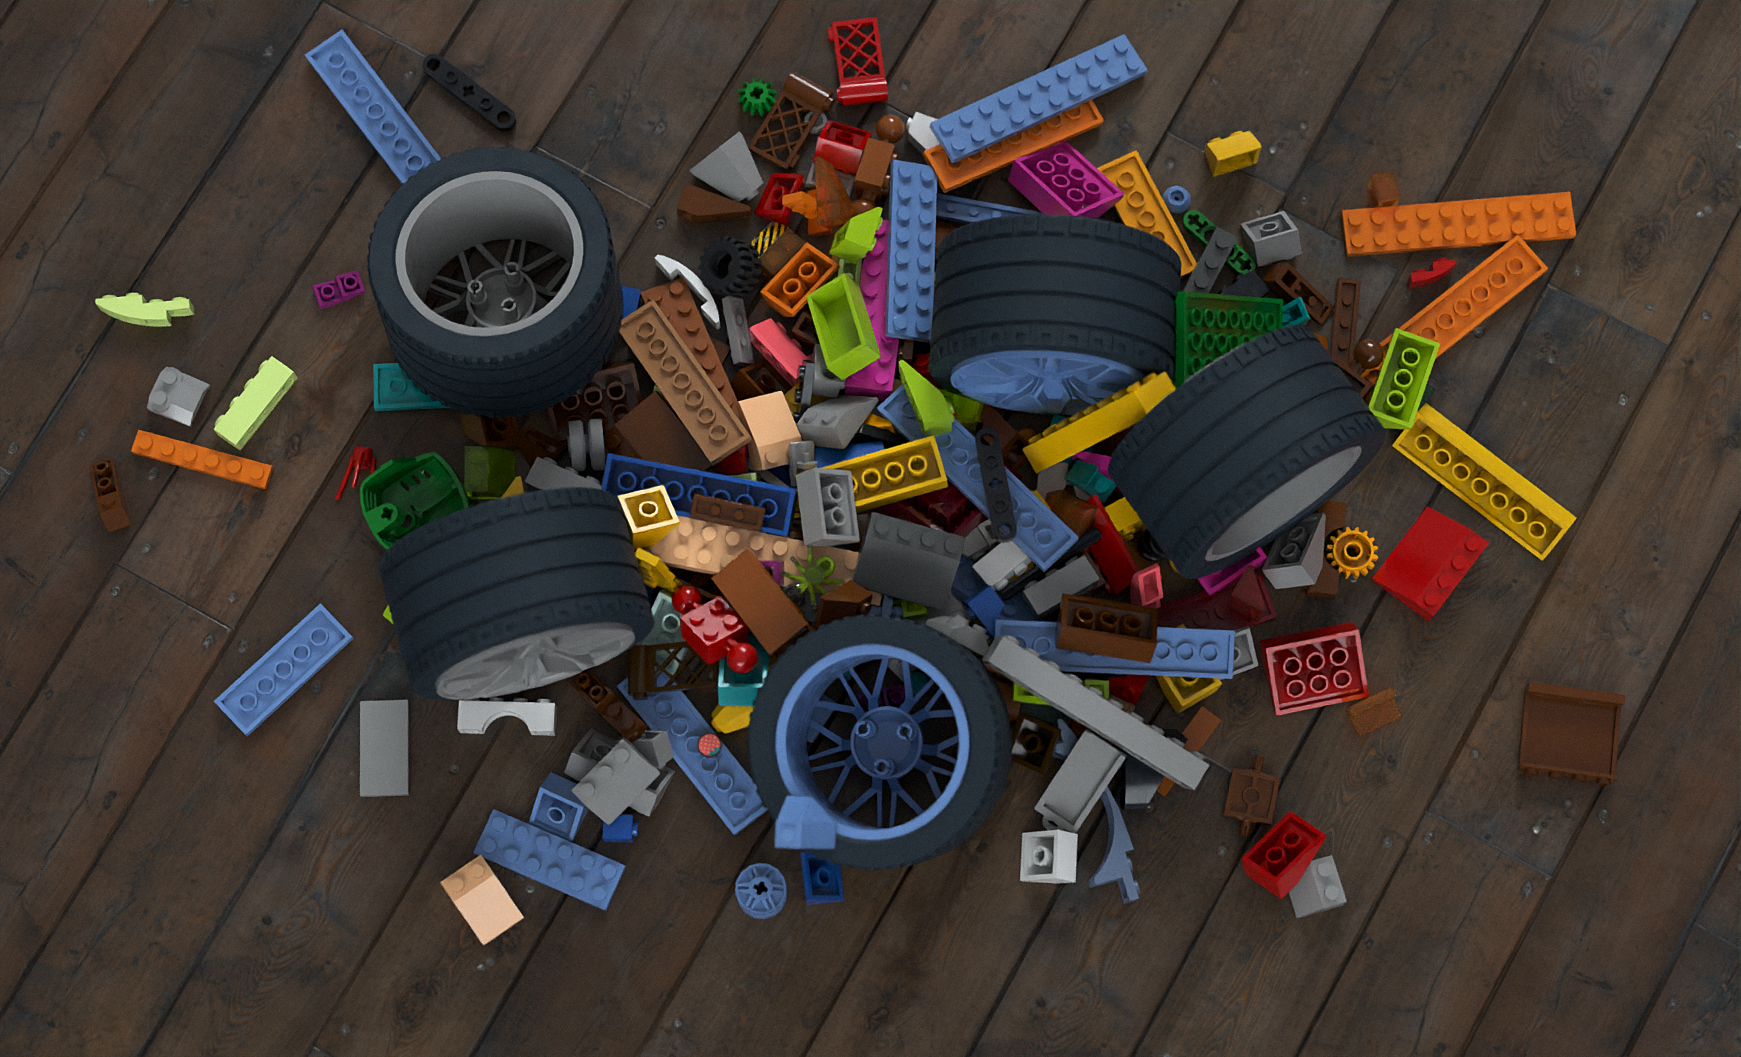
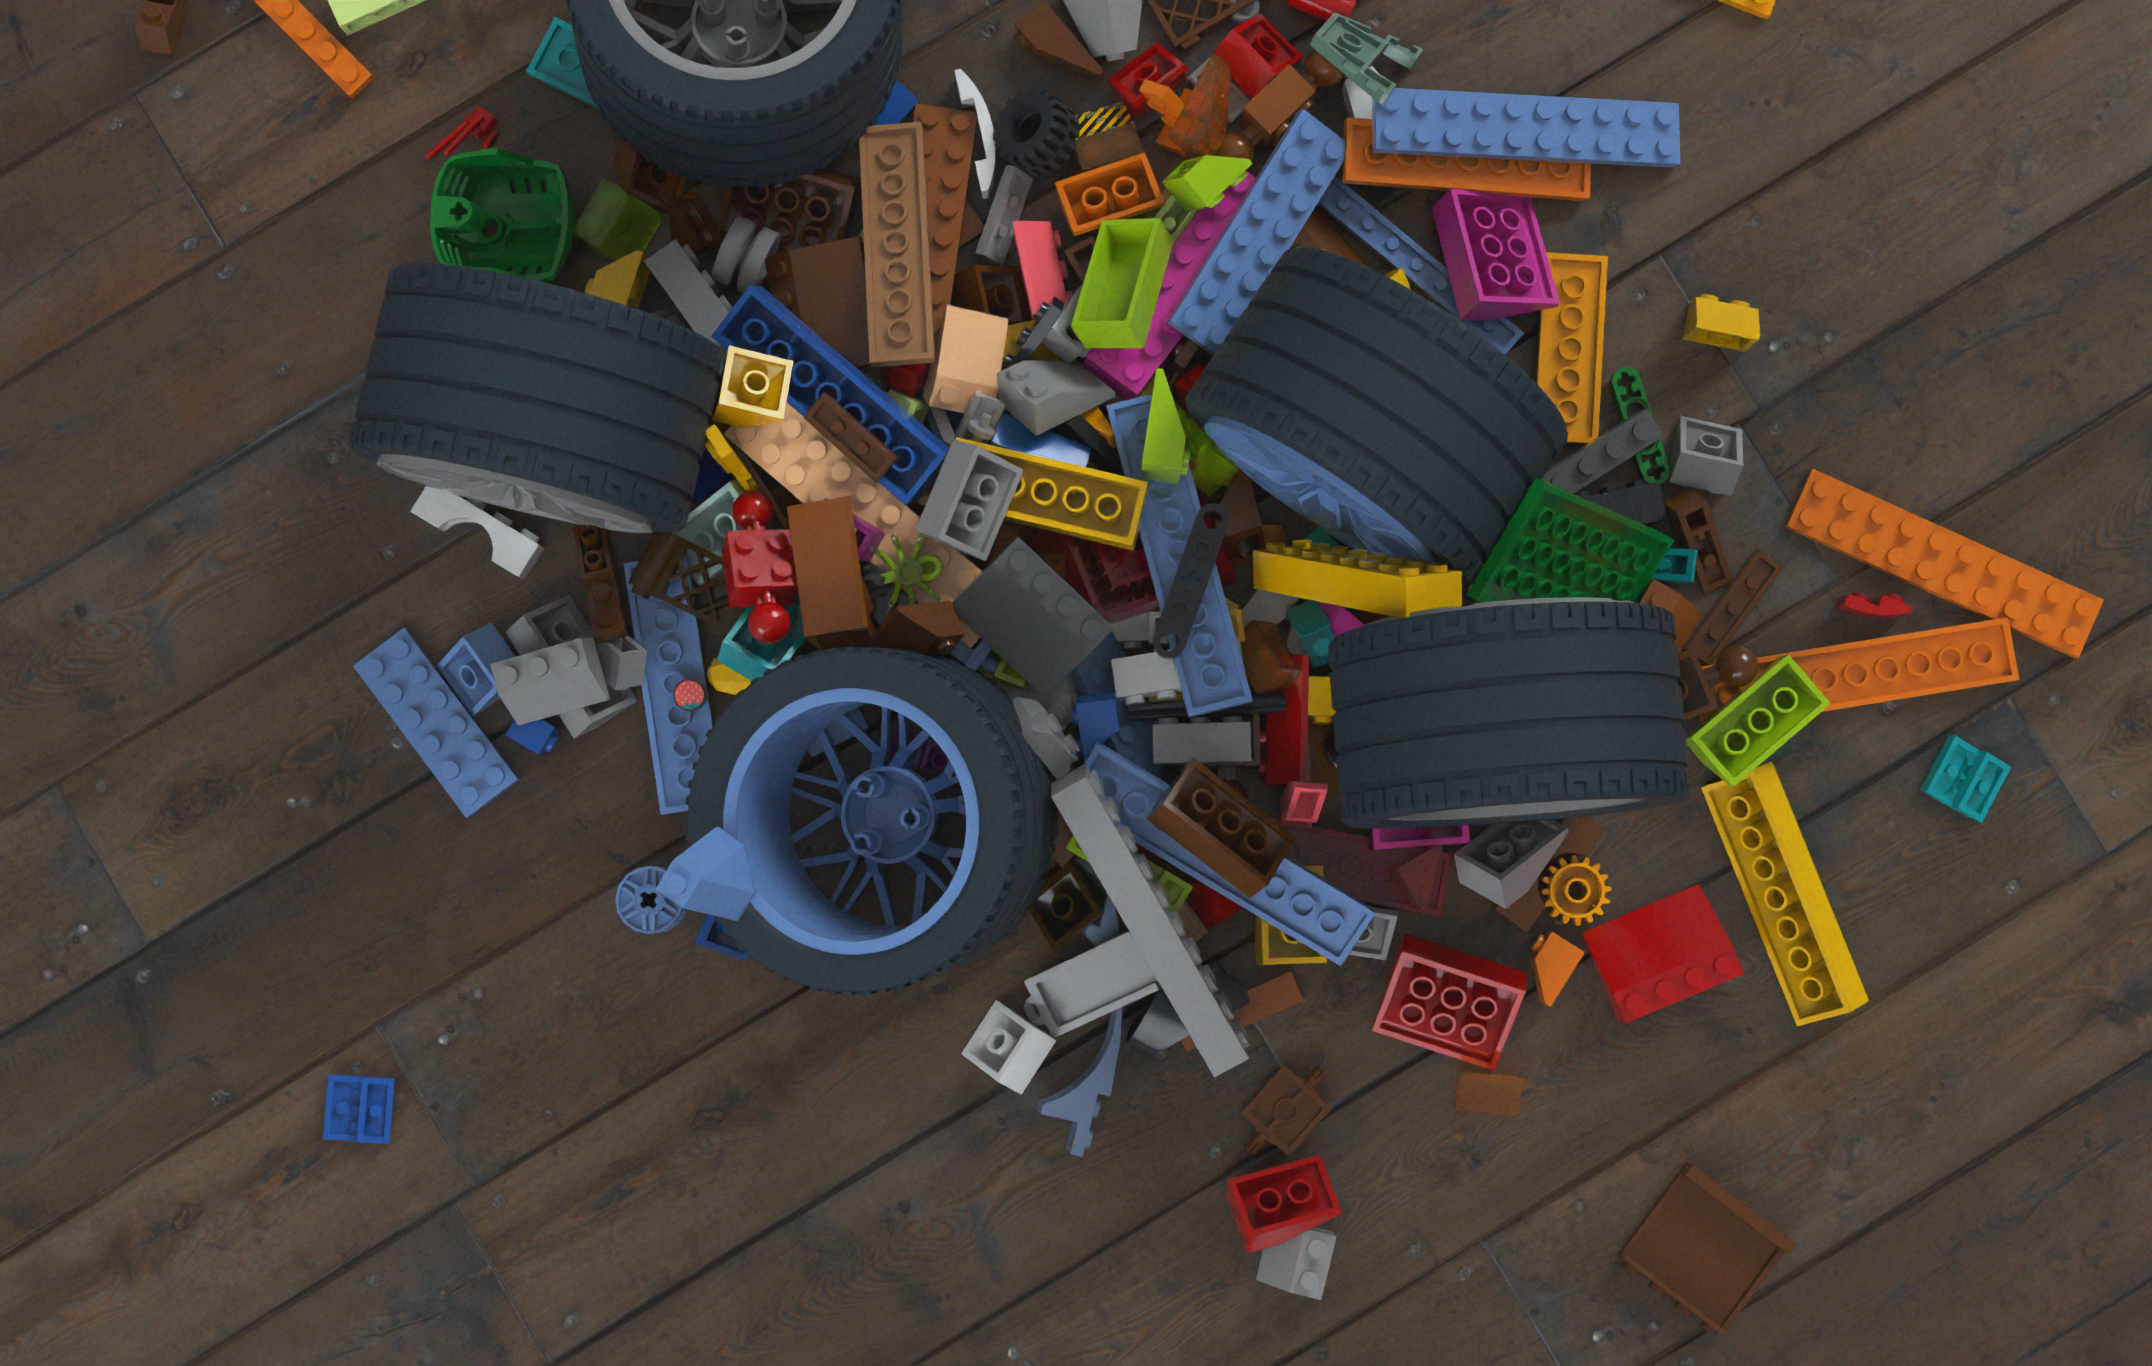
camera: 30 degrees right, 10 degrees up
(283, 670) = (254, 327): medium blue plate -> none
(384, 748) = (317, 488): light grey tile -> none
(482, 900) = (332, 726): light nougat slope -> none
(905, 108) = (1355, 50): none -> sand green wing
(1179, 206) = (1624, 353): medium blue plate -> none
(1365, 607) = (1552, 964): none -> orange slope
(1384, 189) = (1878, 471): clear orange brick -> none
(1552, 348) = (1965, 778): none -> teal slope

